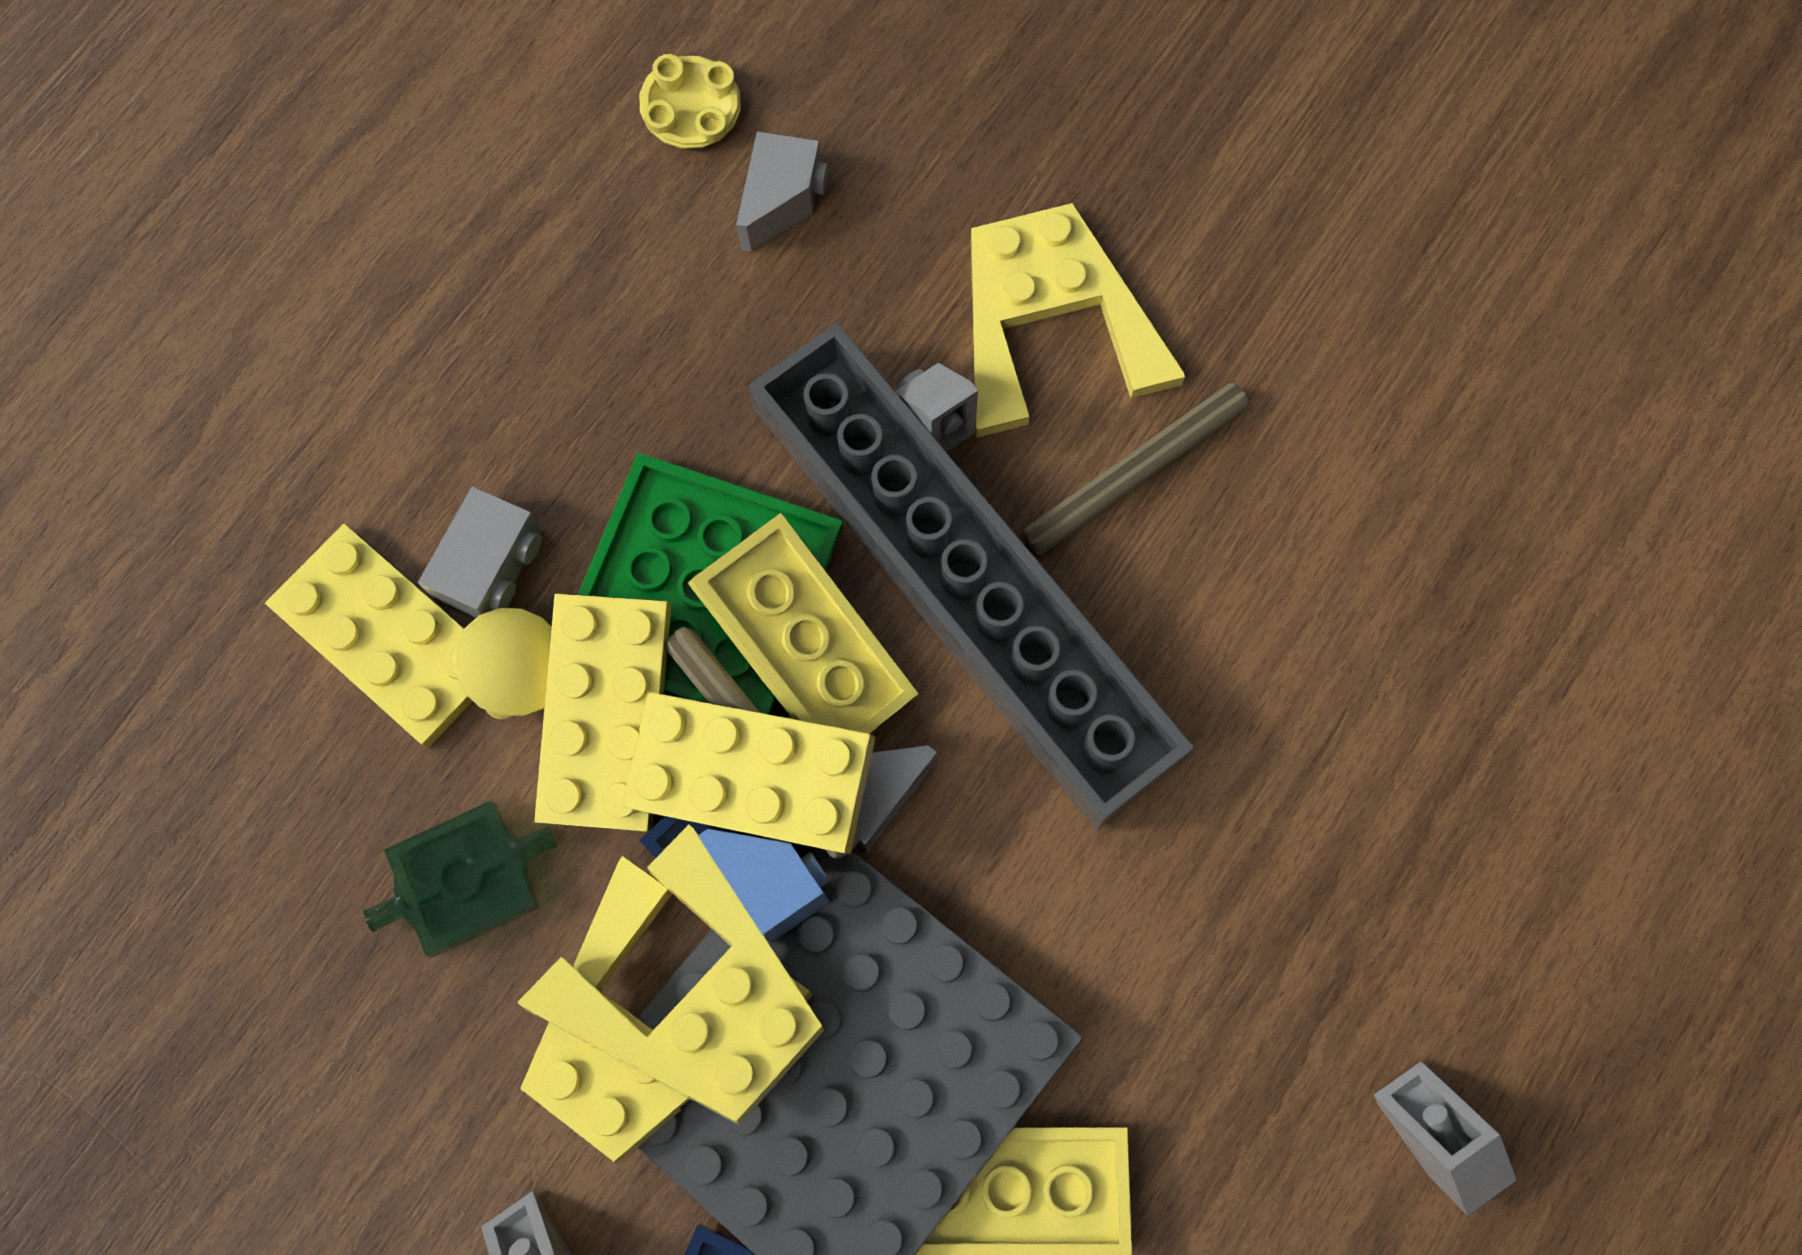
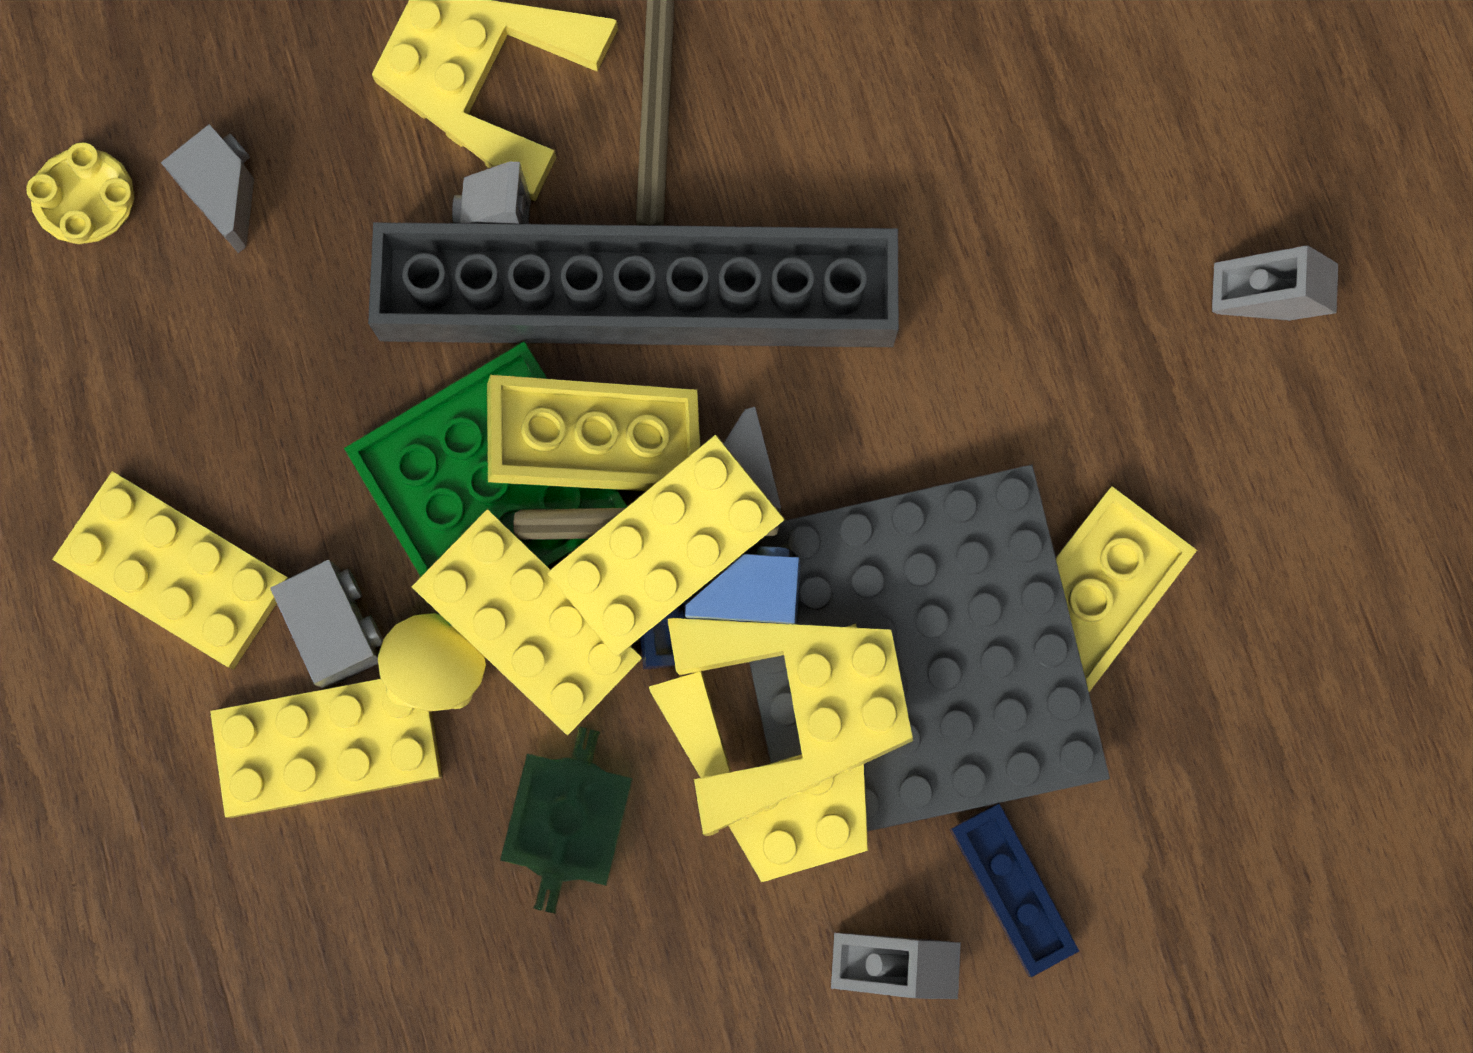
camera: 55 degrees left, 5 degrees up
(439, 405) = (171, 570): none -> light yellow plate

